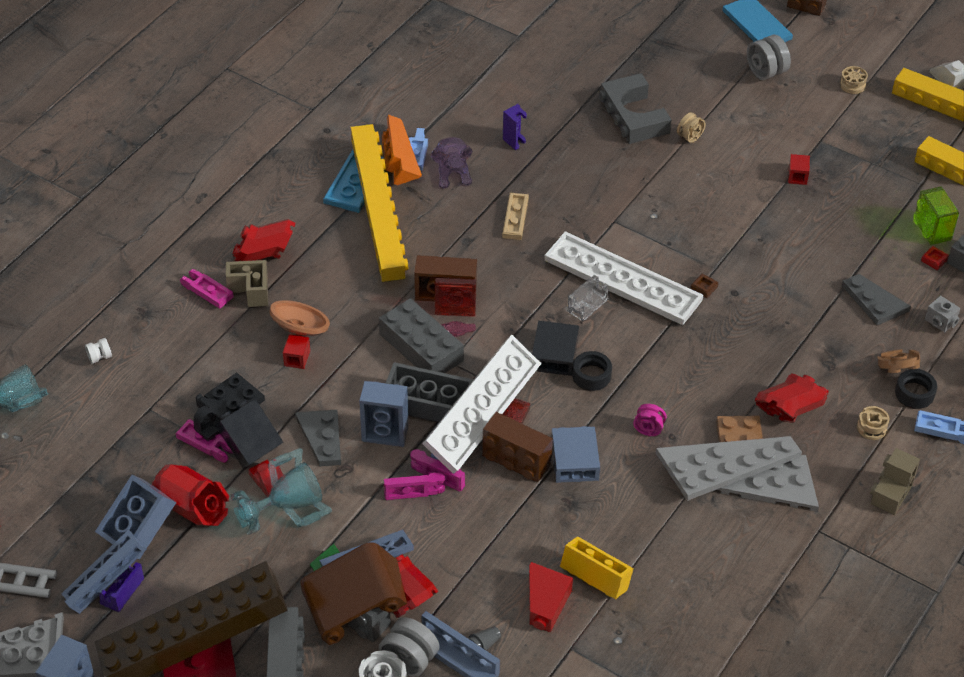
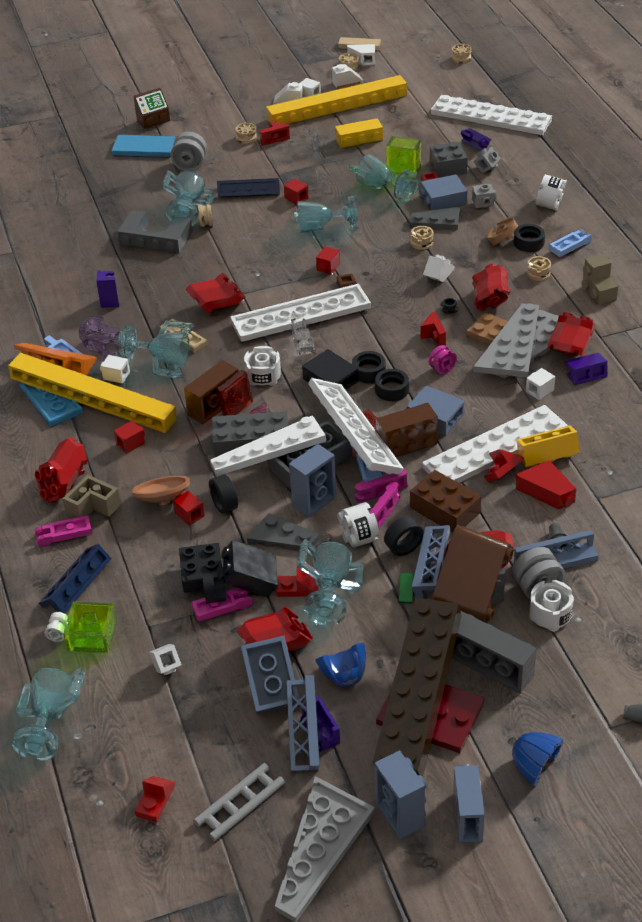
camera: 50 degrees left, 5 degrees down
(109, 370) = (90, 627): none -> clear neon green brick
(111, 439) = (165, 659): none -> white brick
(159, 330) = (76, 579): none -> dark blue fence
(191, 564) = (344, 667): none -> blue hair
(326, 363) = (223, 493): none -> black tyre
(348, 260) = (129, 436): none -> red brick
(364, 479) = (358, 525): none -> white brick
(381, 511) = (398, 529): none -> black tyre
(410, 363) = (281, 442): none -> white wing
(421, 198) = (115, 369): none -> white brick
(454, 528) = (445, 501): none -> reddish brown brick
(476, 216) = (166, 347): none -> clear light blue piece
(516, 293) = (262, 366): none -> white brick
(548, 547) = (503, 462): none -> red slope
(562, 523) = (473, 455): none -> white plate
(580, 201) = (215, 293): none -> red brick
(583, 414) = (395, 393): none -> black tyre
(689, 516) = (540, 383): none -> white brick
(692, 388) = (433, 328): none -> red slope
(708, 94) = (188, 190): none -> clear light blue piece
(716, 253) = (328, 260): none -> red brick
(743, 382) = (449, 305): none -> black plate
(749, 542) = (587, 368): none -> dark purple hinge
(767, 204) = (314, 216): none -> clear light blue piece
(770, 131) = (248, 187): none -> dark blue fence
(777, 502) = (571, 334): none -> red brick
(787, 342) = (438, 268): none -> white slope
(827, 302) = (421, 236): none -> tan wheel
(875, 101) = (275, 133): none -> red slope
(884, 210) = (376, 173): none -> clear light blue piece
(917, 280) = (443, 192): none -> sand blue brick

